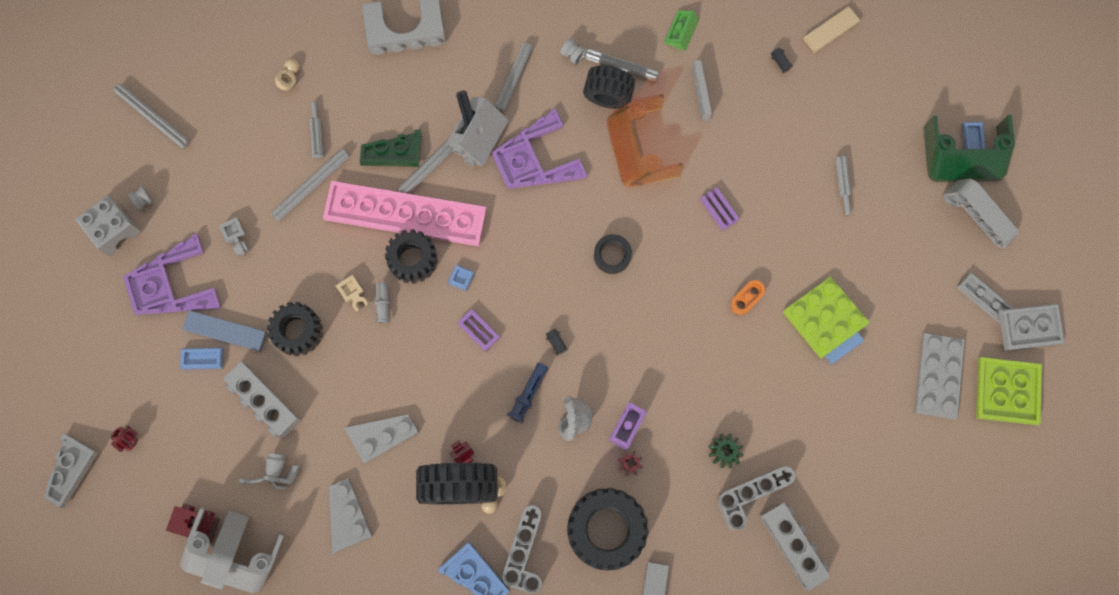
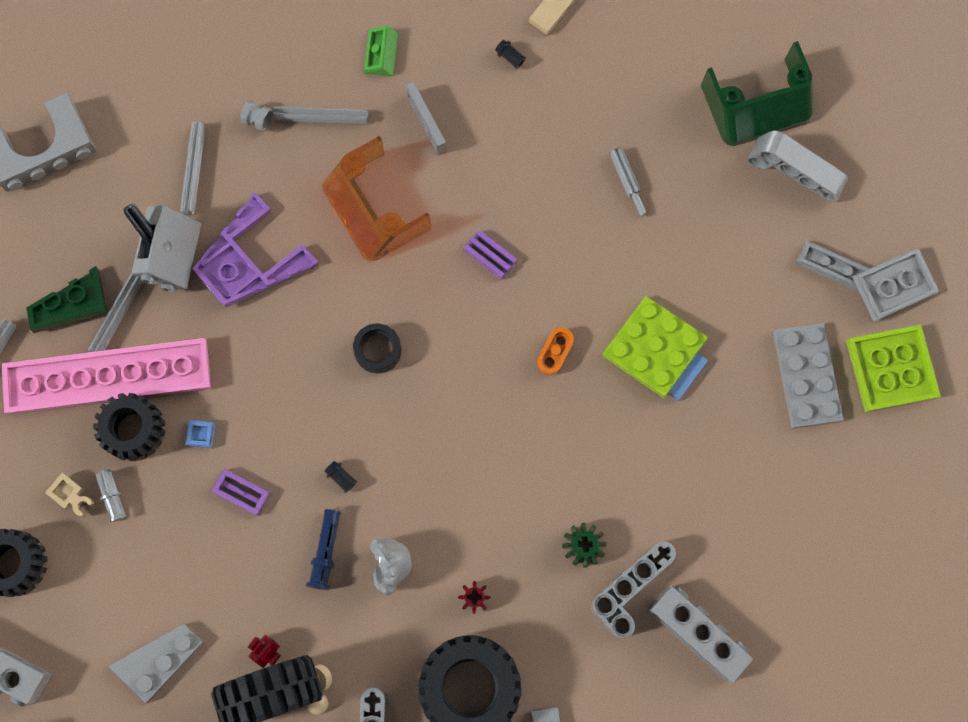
camera: 20 degrees left, 0 degrees up
(609, 87) = (311, 146): black tyre -> none
(627, 426) = (457, 553): medium lavender brick -> none
(973, 135) = (761, 78): medium blue tile -> none

